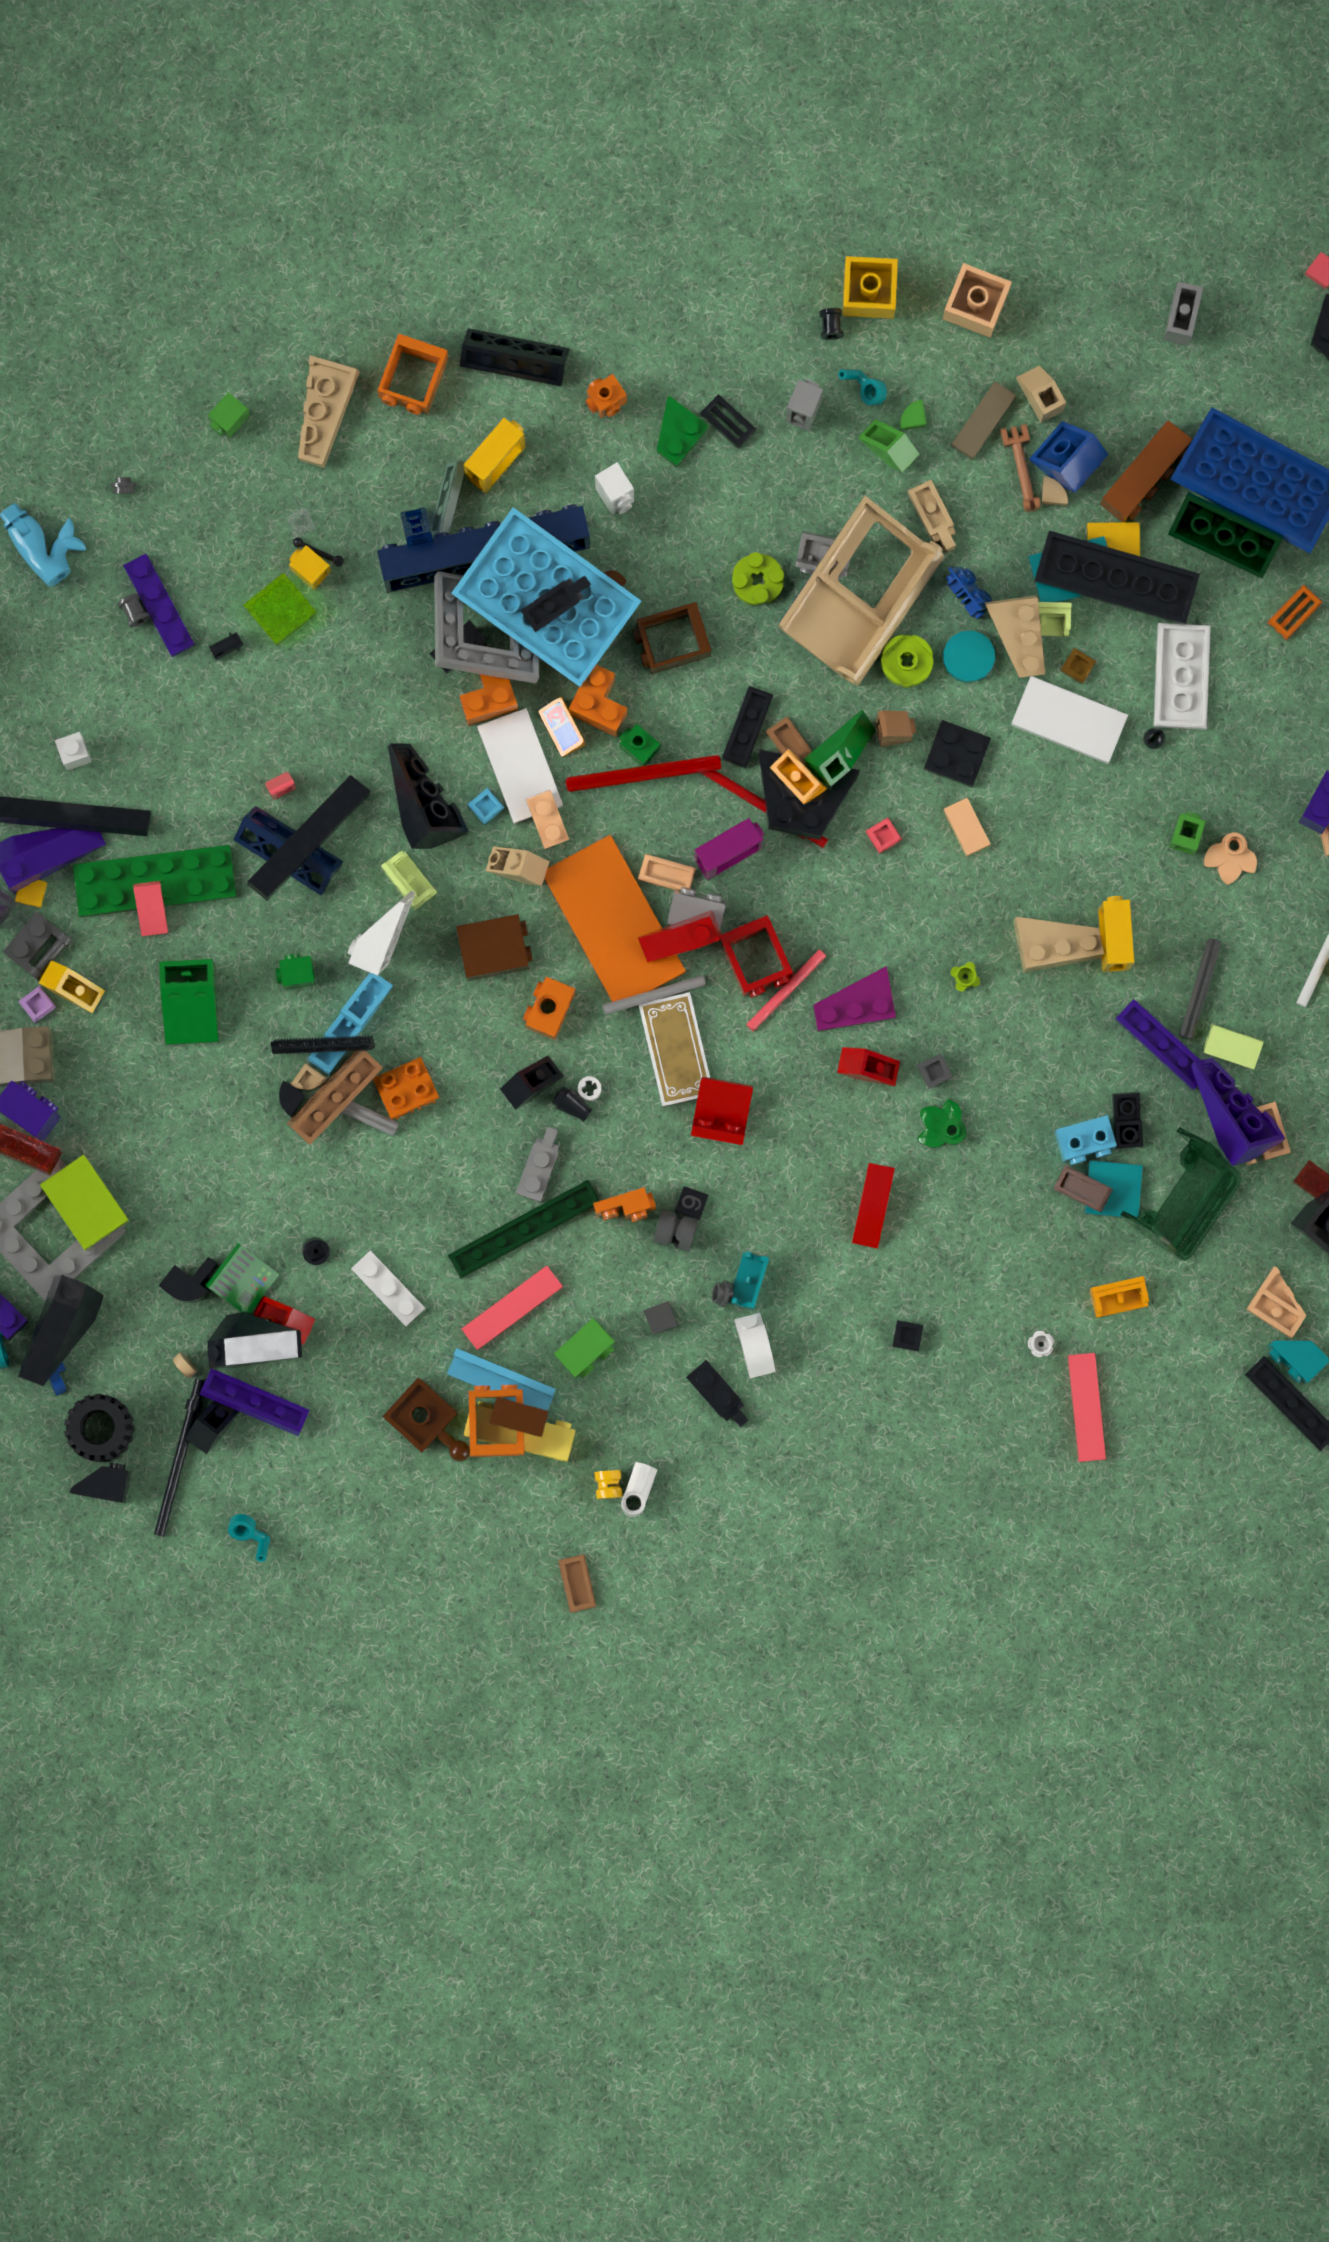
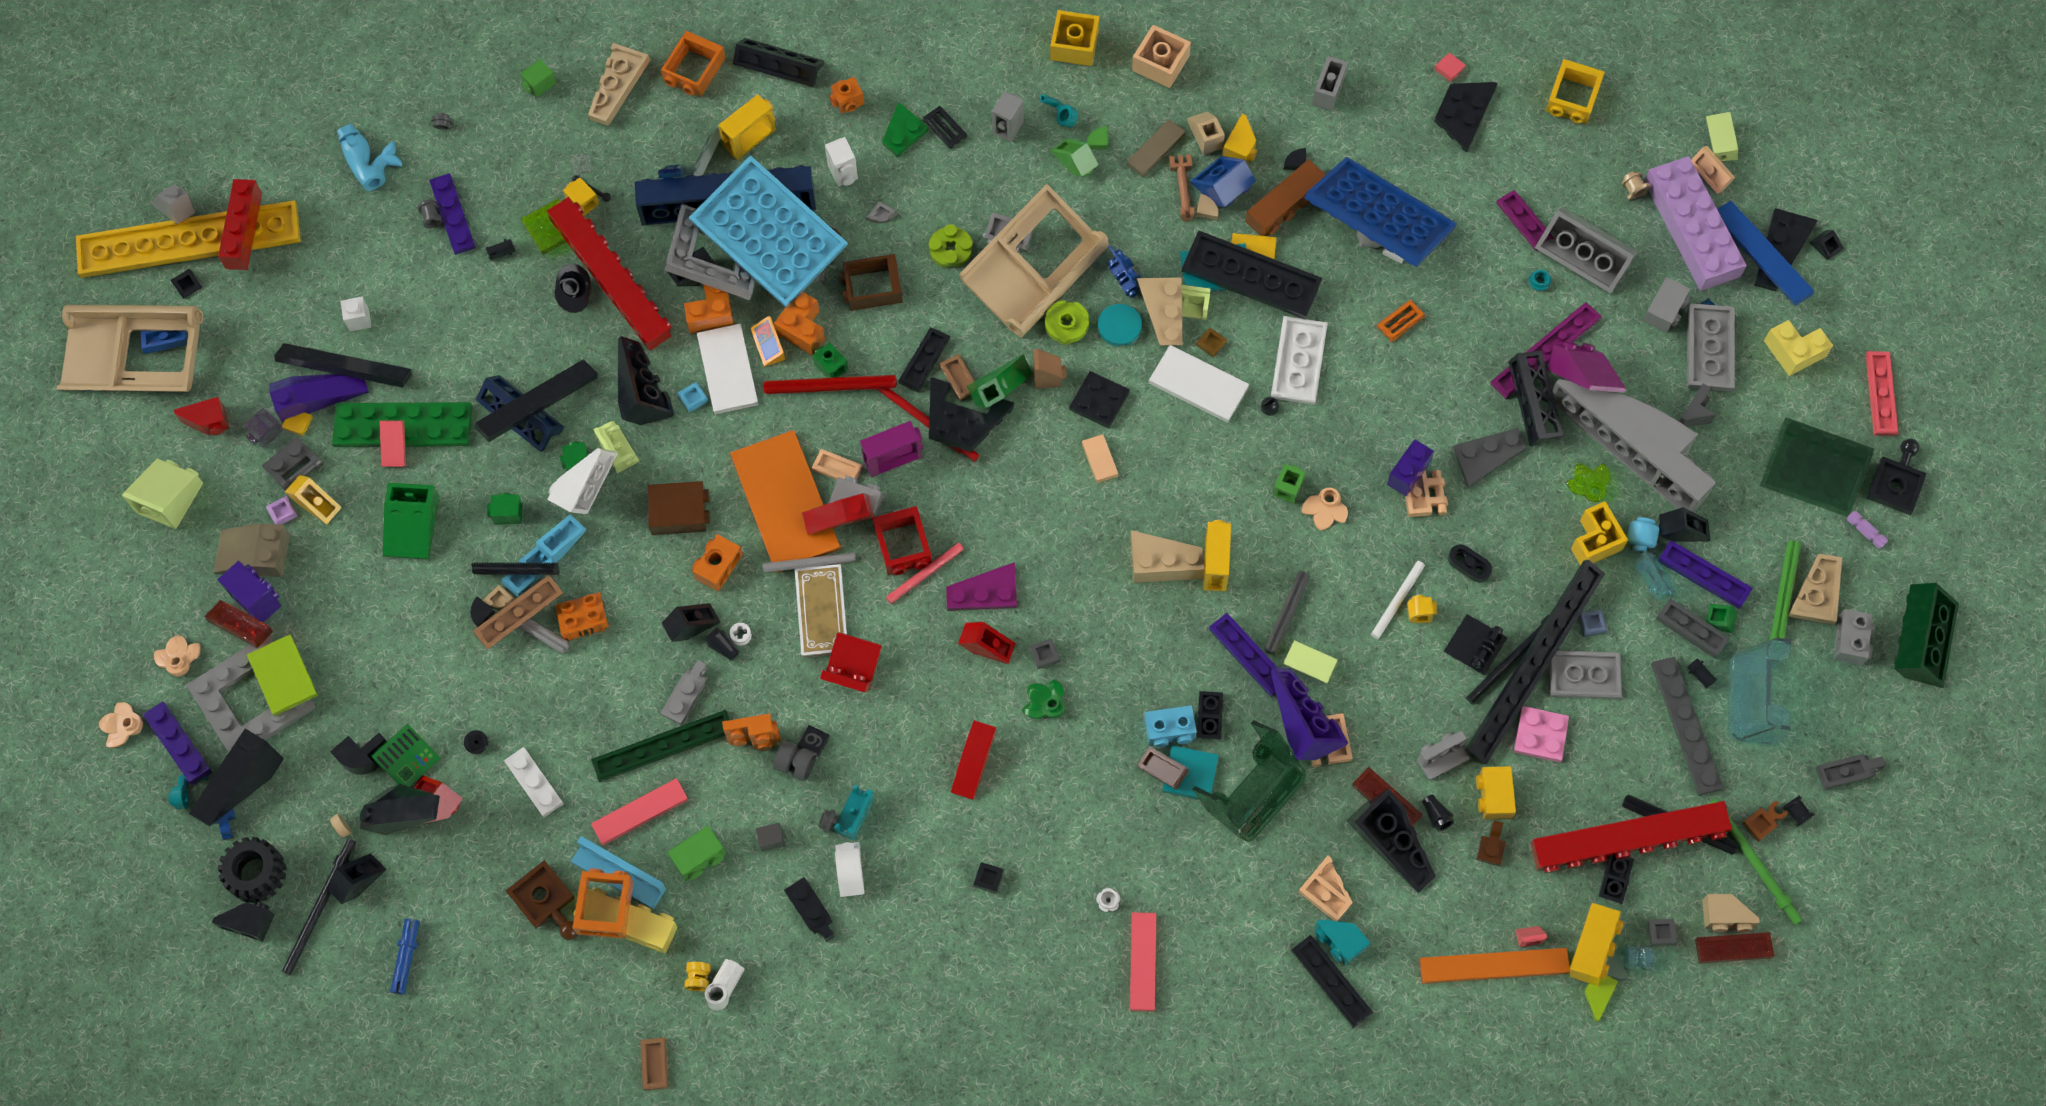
camera: 10 degrees right, 15 degrees down
(243, 1528) = (362, 975): teal plate -> none
(254, 1402) = (394, 864): dark purple plate -> none
(280, 785) = (524, 362): coral slope -> none
(285, 1500) = (406, 947): none -> blue pin
(323, 690) = (572, 288): none -> black piece
(362, 665) = (609, 273): none -> red brick
(365, 902) = (573, 454): none -> green brick
(517, 865) = (710, 444): tan slope -> none
(519, 1417) = (622, 898): reddish brown tile -> none
(547, 819) = (742, 411): light nougat plate -> none
(554, 602) = (773, 232): black hinge -> none
(669, 545) = (881, 213): none -> light grey tile
(798, 777) = (959, 399): light orange slope -> none
(831, 323) = (1040, 62): black bush -> none
(883, 835) = (1027, 457): coral tile -> none
(933, 514) = (1104, 213): tan hinge -> none
(969, 970) = (1080, 573): lime plate -> none
(1085, 404) = (1241, 141): none -> yellow slope
(1119, 1296) = (1184, 865): light orange hinge -> none
(1152, 417) = (1295, 159): none -> black tile
(1225, 535) = (1347, 248): dark green slope -> none

